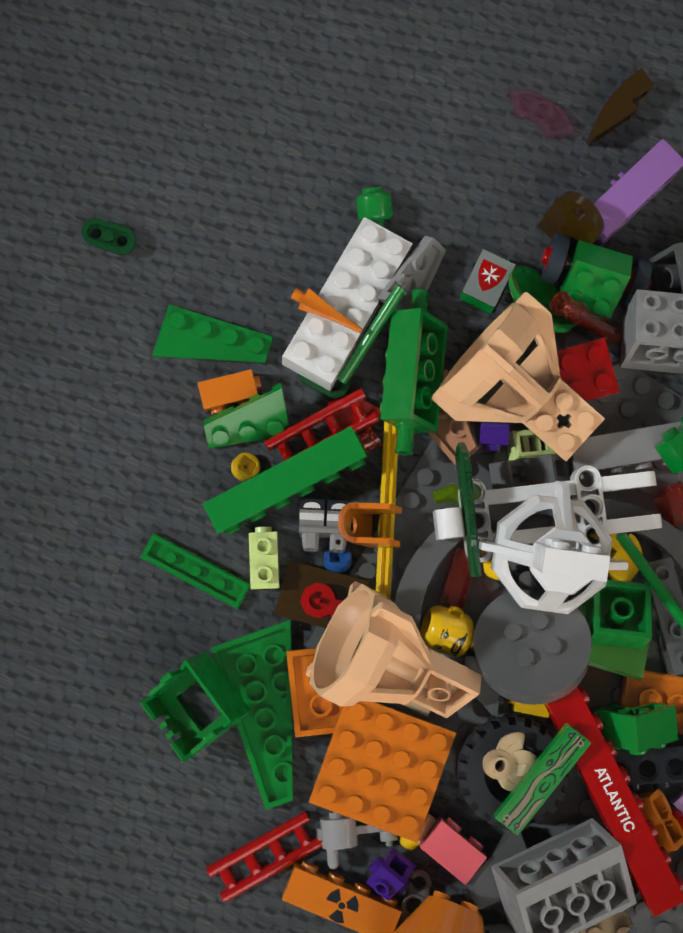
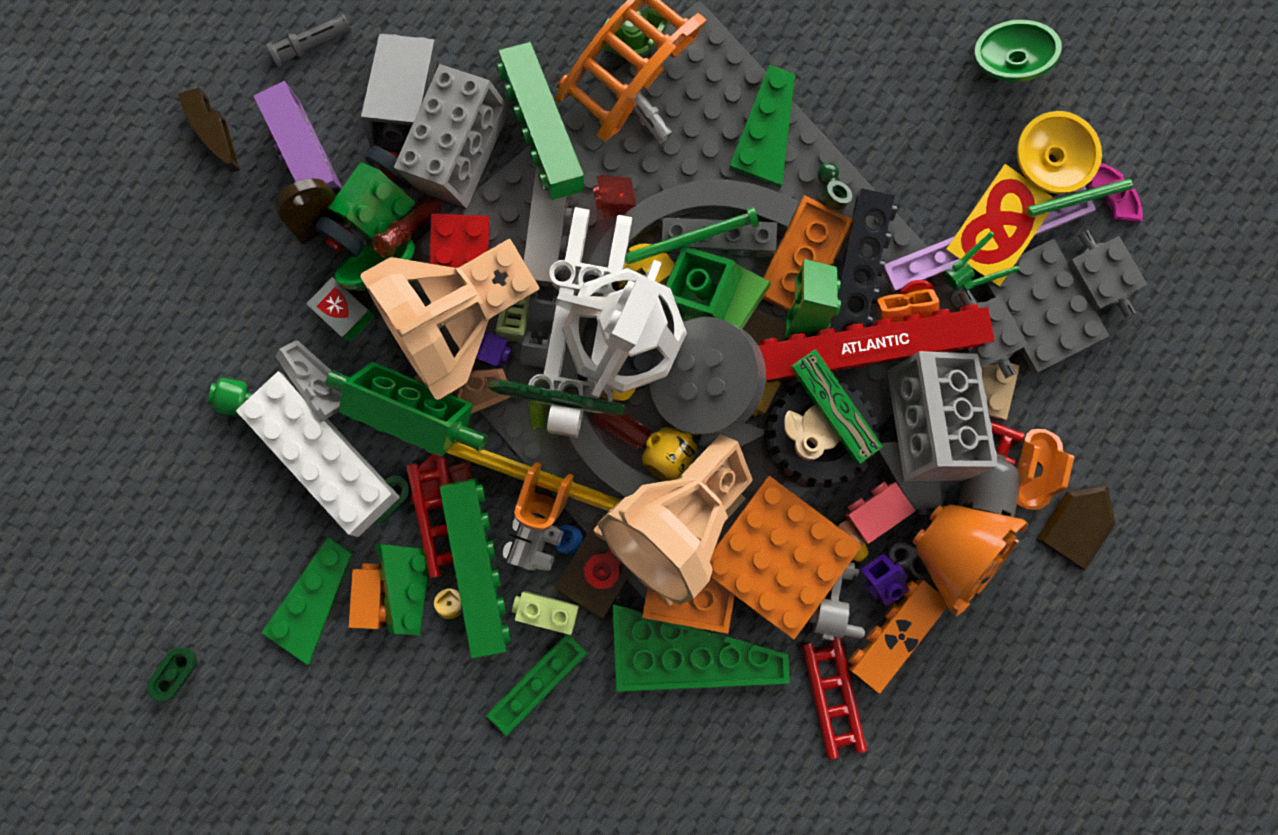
camera: 70 degrees left, 0 degrees up
(165, 701) = (655, 751): green piece -> none
(313, 304) = (306, 487): orange piece -> none
(371, 334) = (353, 436): green bar -> none
(542, 112) = (190, 203): clear pink tile -> none

